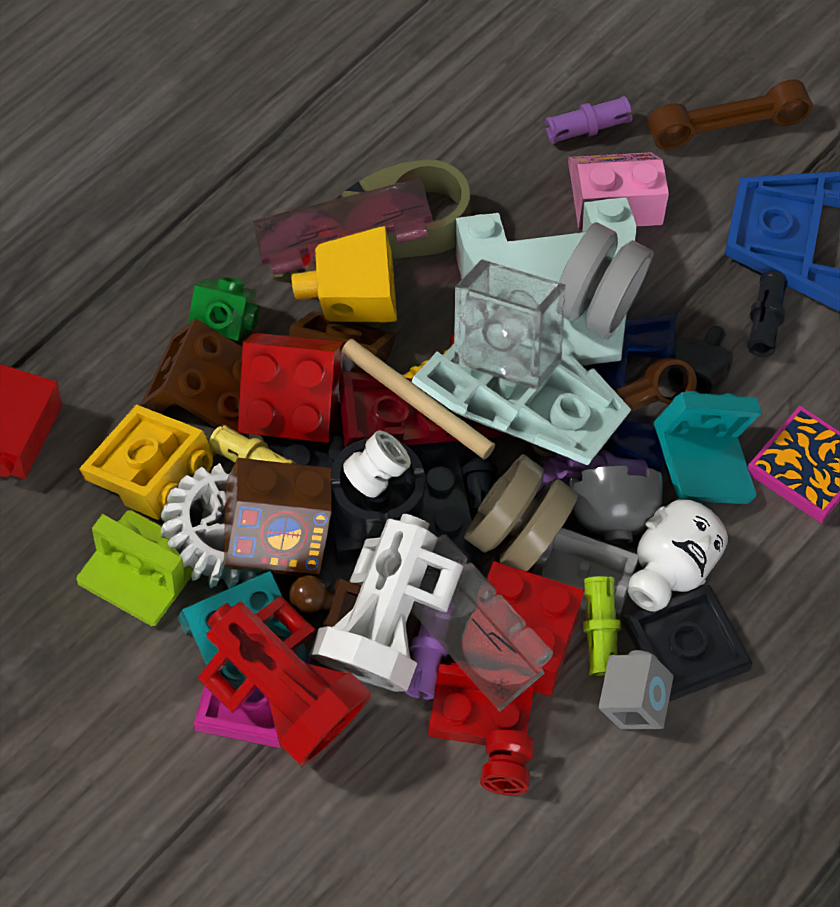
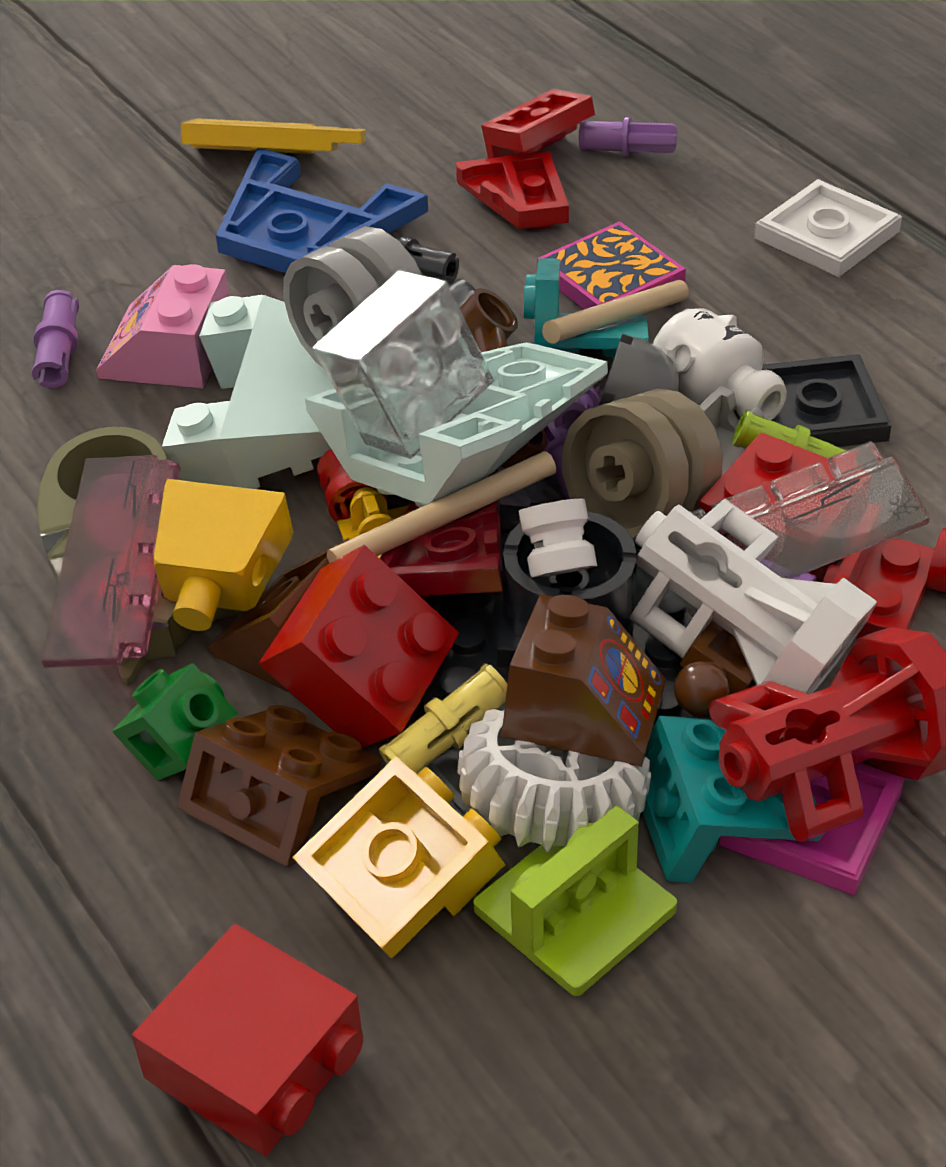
camera: 70 degrees left, 15 degrees down
(636, 691) = (895, 428): light grey brick -> none
(675, 126) = (110, 264): reddish brown piece -> none
(726, 471) = (614, 311): none -> tan bar

